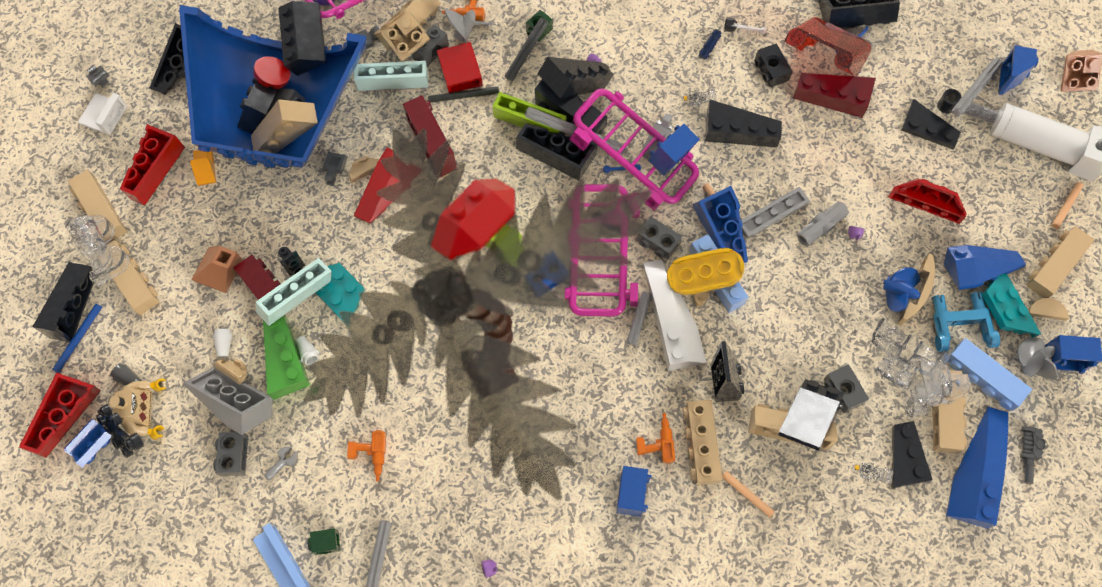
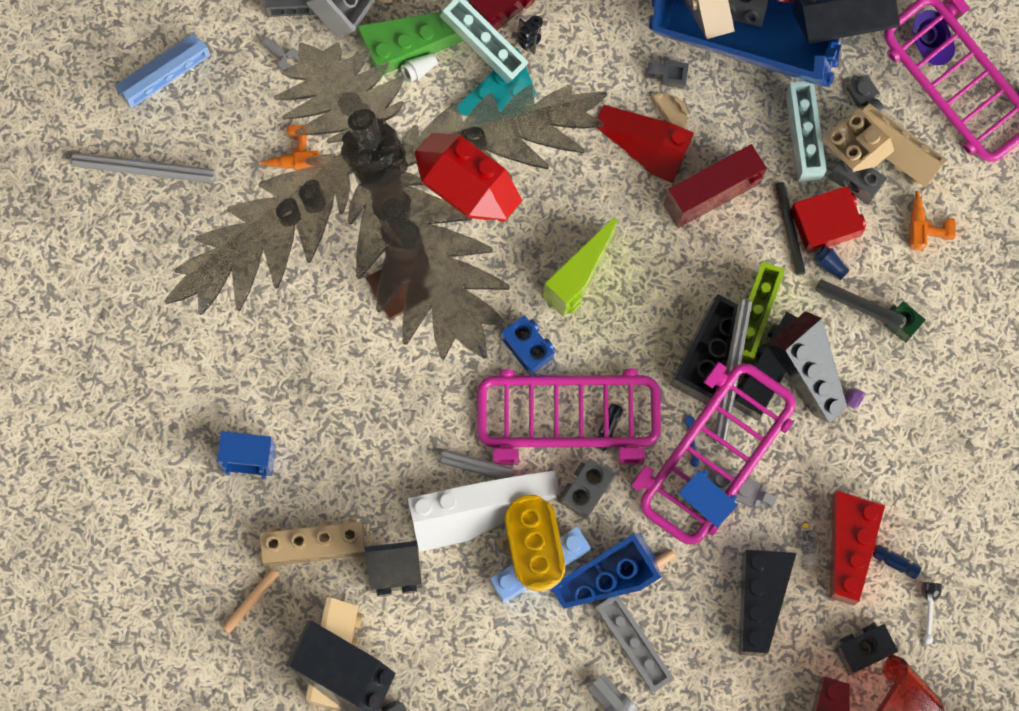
camera: 80 degrees right, 5 degrees up
(324, 541) = (188, 110): dark green brick -> none
(463, 24) = (888, 216): light grey piece -> none
(489, 568) = (158, 295): medium lavender hinge -> none
(491, 69) = (830, 262): none -> dark blue cone
(665, 444) = (310, 498): orange piece -> none
(701, 67) = (854, 535): none -> red wedge

